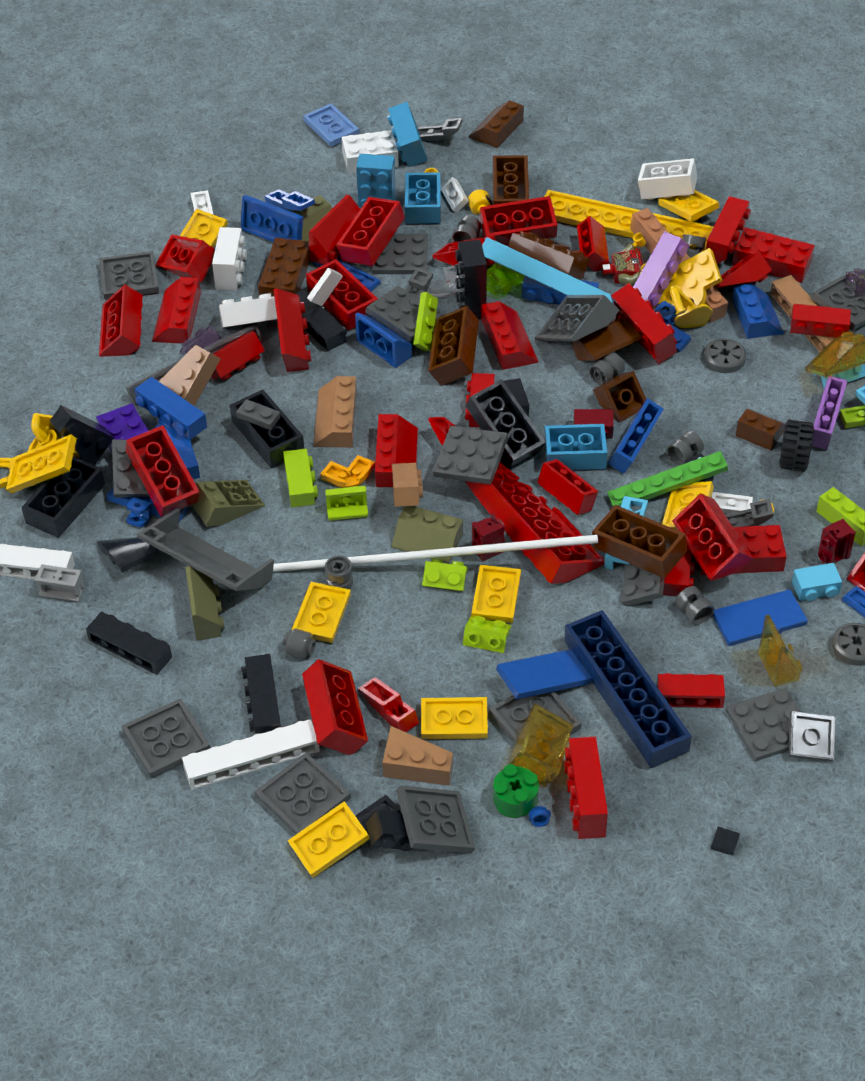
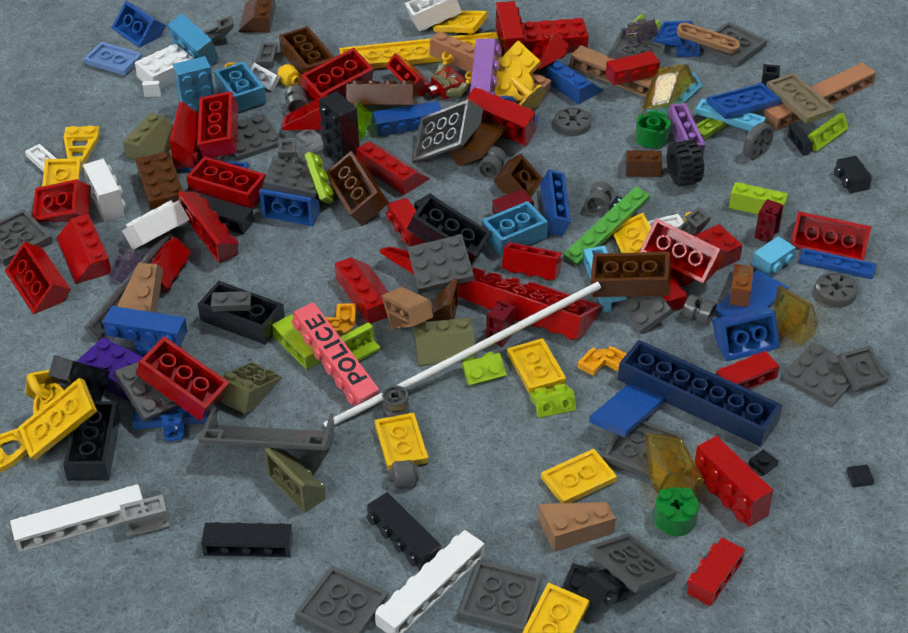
camera: 30 degrees left, 5 degrees down
(127, 552) = (189, 463): black slope -> none
(242, 190) = (83, 133): none -> yellow plate
(269, 220) = (120, 147): blue tile -> none
(290, 201) = (132, 123): blue slope -> none
(314, 503) = (334, 354): none -> coral brick
(325, 287) = (215, 178): white tile -> none
(334, 707) = (478, 511): red brick -> none
(336, 413) = (291, 278): medium nougat slope -> none
(343, 170) = (151, 89): none -> white tile
(375, 96) = (137, 25): none -> blue slope
(389, 704) = (516, 490): red slope -> none
(453, 498) = (446, 303): none -> reddish brown slope
(475, 171) = (267, 54): none -> dark grey plate
(510, 864) = (715, 571): none -> red brick
(537, 270) = (393, 107): medium azure tile -> none
(539, 816) = (707, 520): blue plate -> none
(558, 611) = (596, 359): none -> light orange plate
(641, 784) = (763, 462): none -> black plate
(722, 649) = (746, 333): none -> blue slope
(756, 597) = (741, 285): none -> dark orange slope
(795, 396) = (652, 129): none -> green brick

